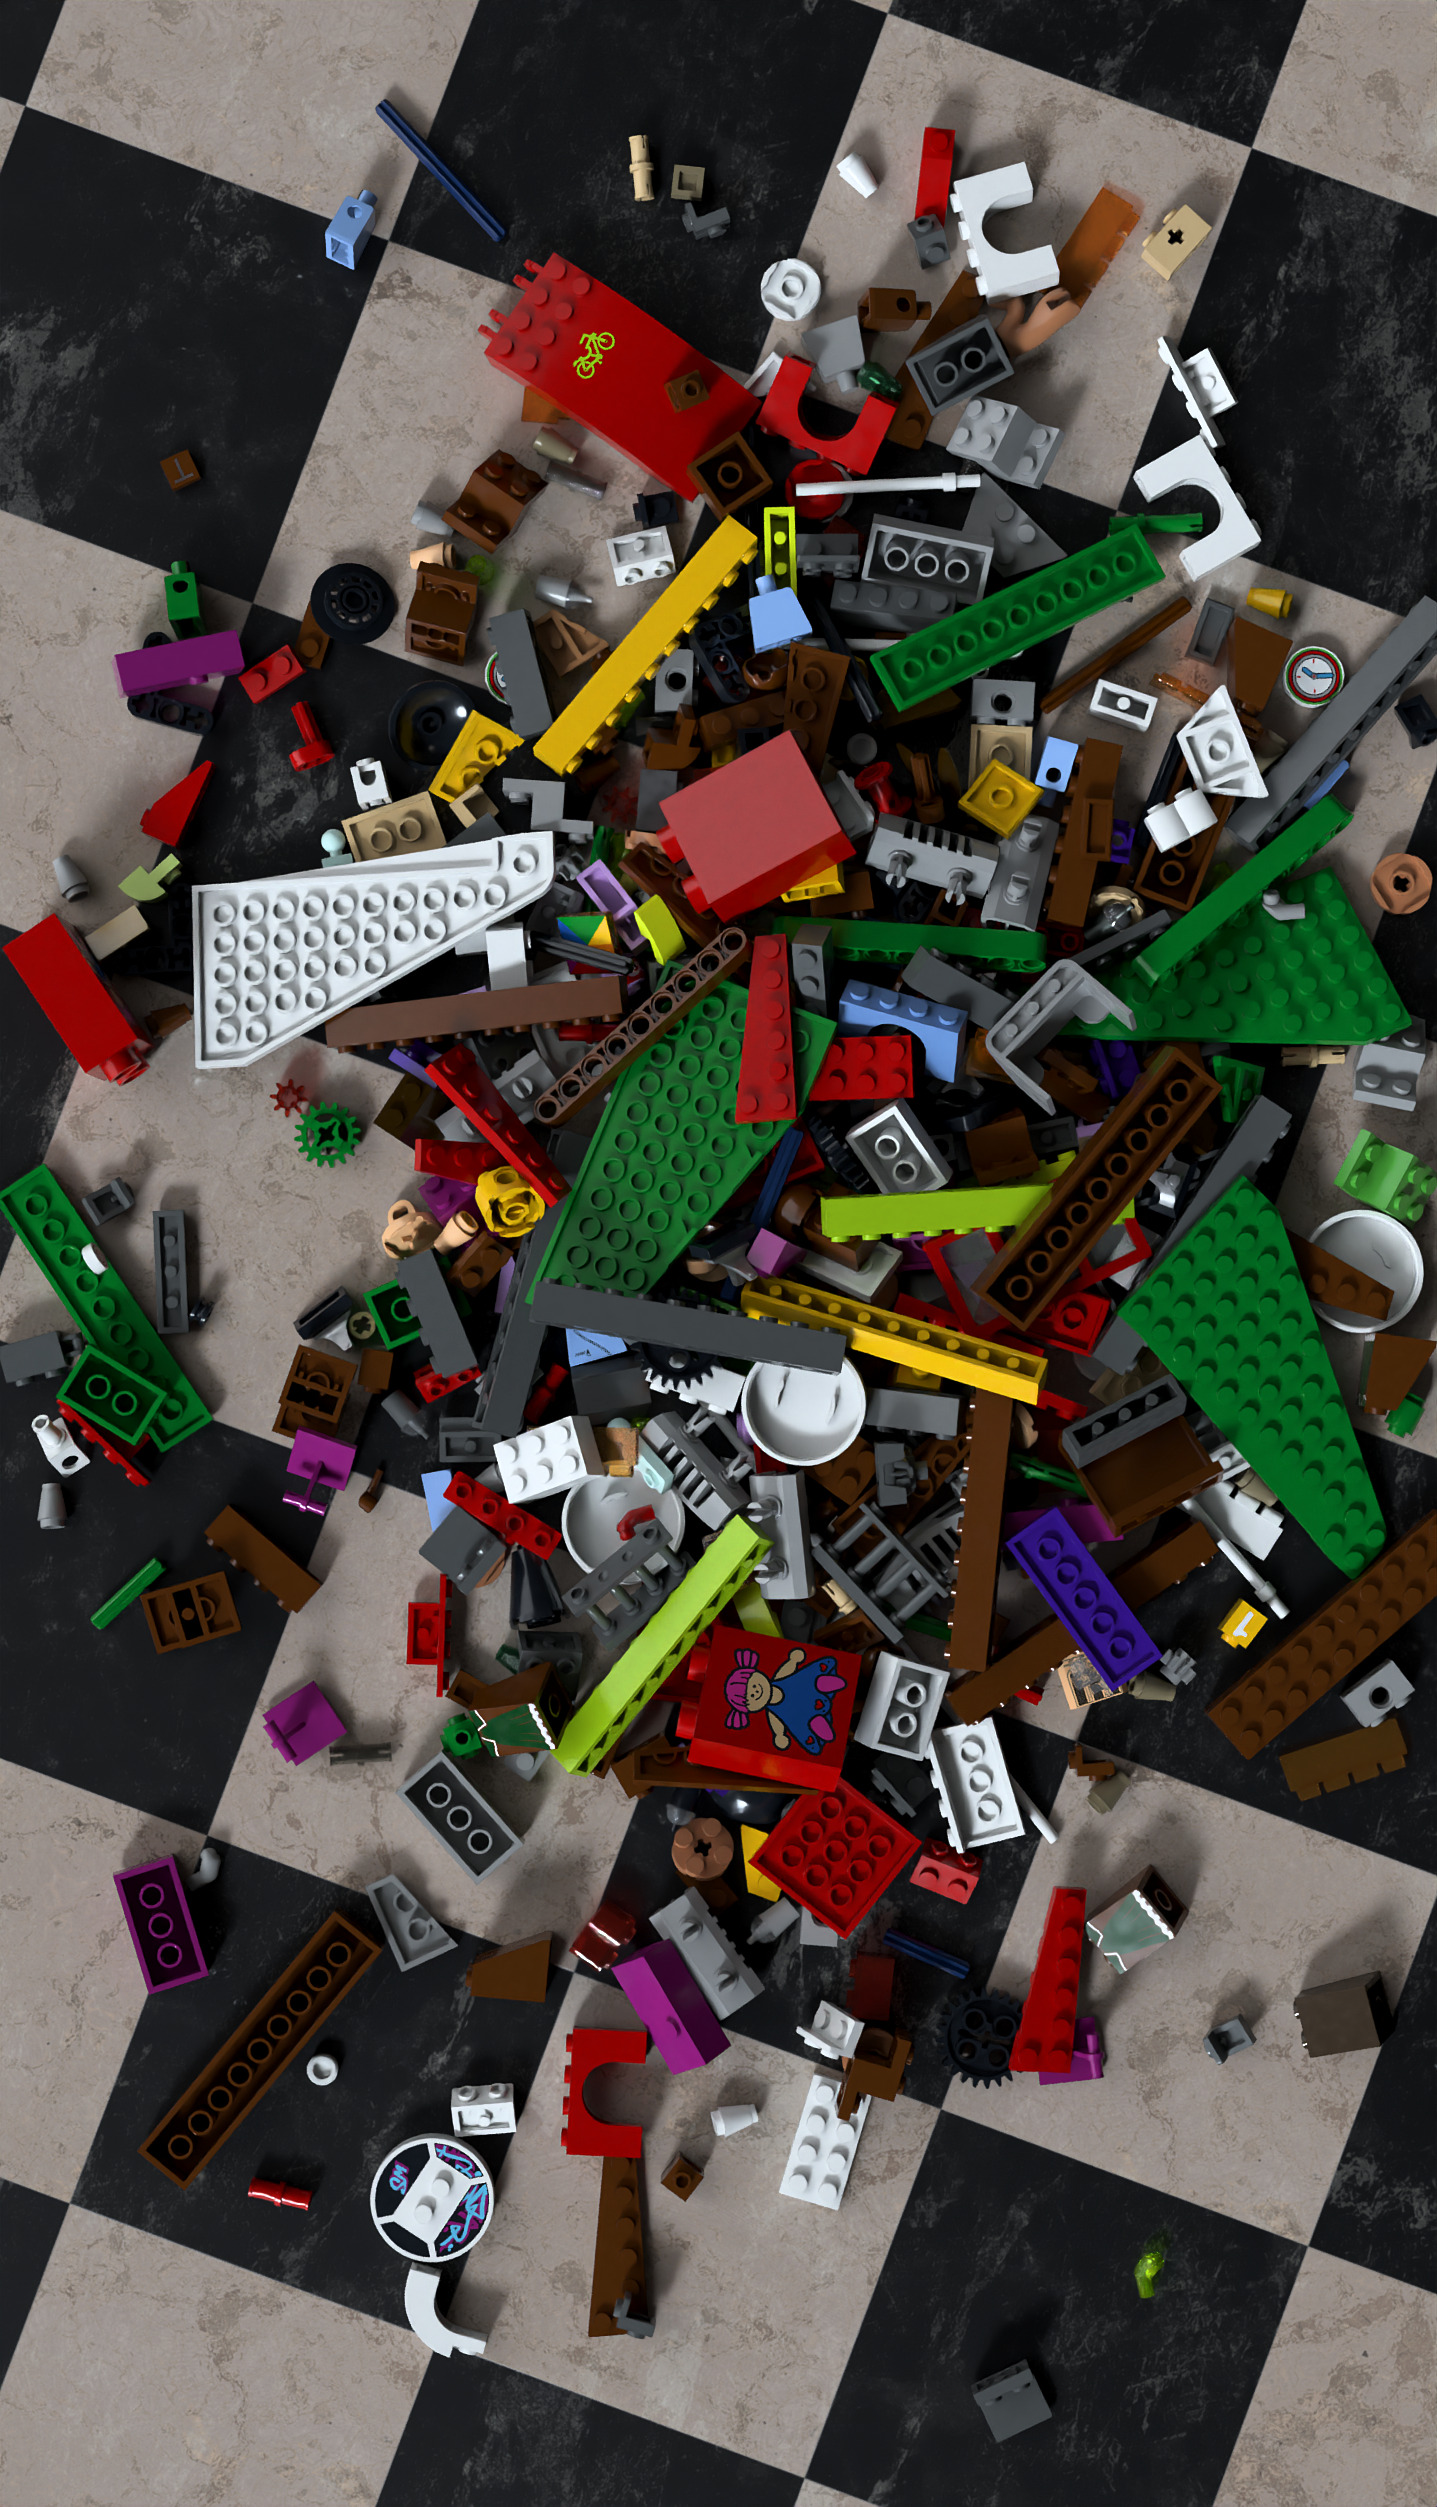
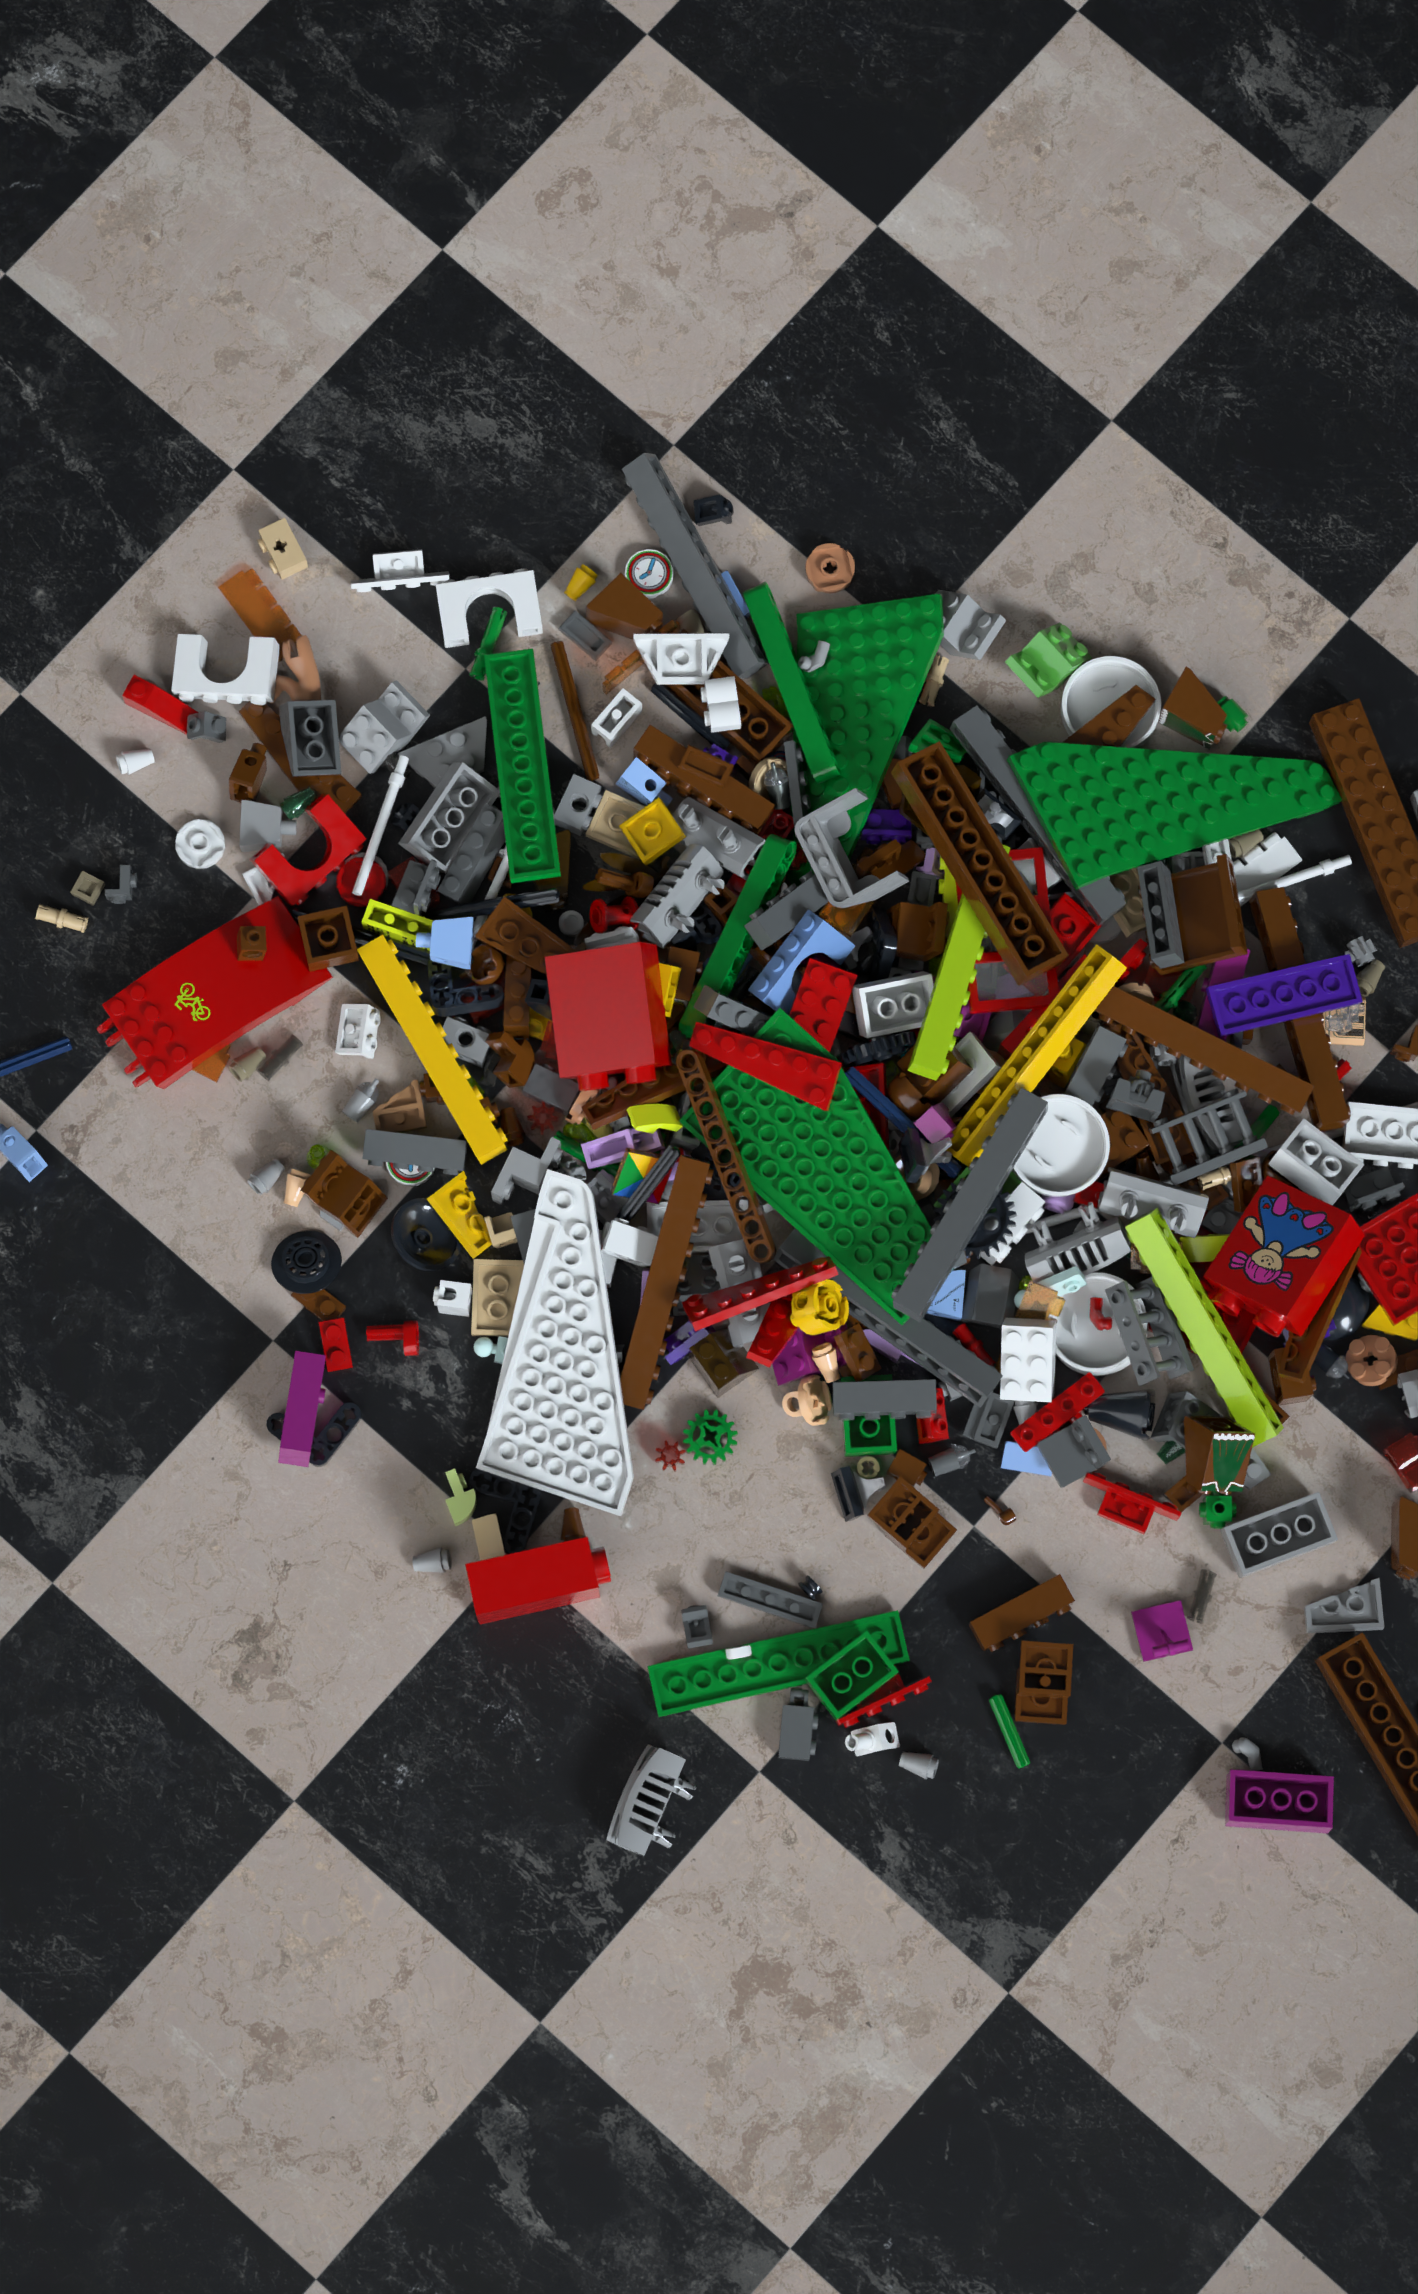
camera: 70 degrees left, 10 degrees down
(175, 810) = (413, 1460): red slope -> none
(180, 470) = (148, 1355): reddish brown tile -> none
(185, 602) = (253, 1388): green torso -> none
(322, 1461) = (961, 1539): magenta plate -> none
(495, 501) = (273, 1122): reddish brown bracket -> none
(587, 1033) = (711, 1204): red pin -> none
(656, 510) = (327, 1006): black bracket -> none
(1241, 1624) = (1345, 893): yellow brick -> none

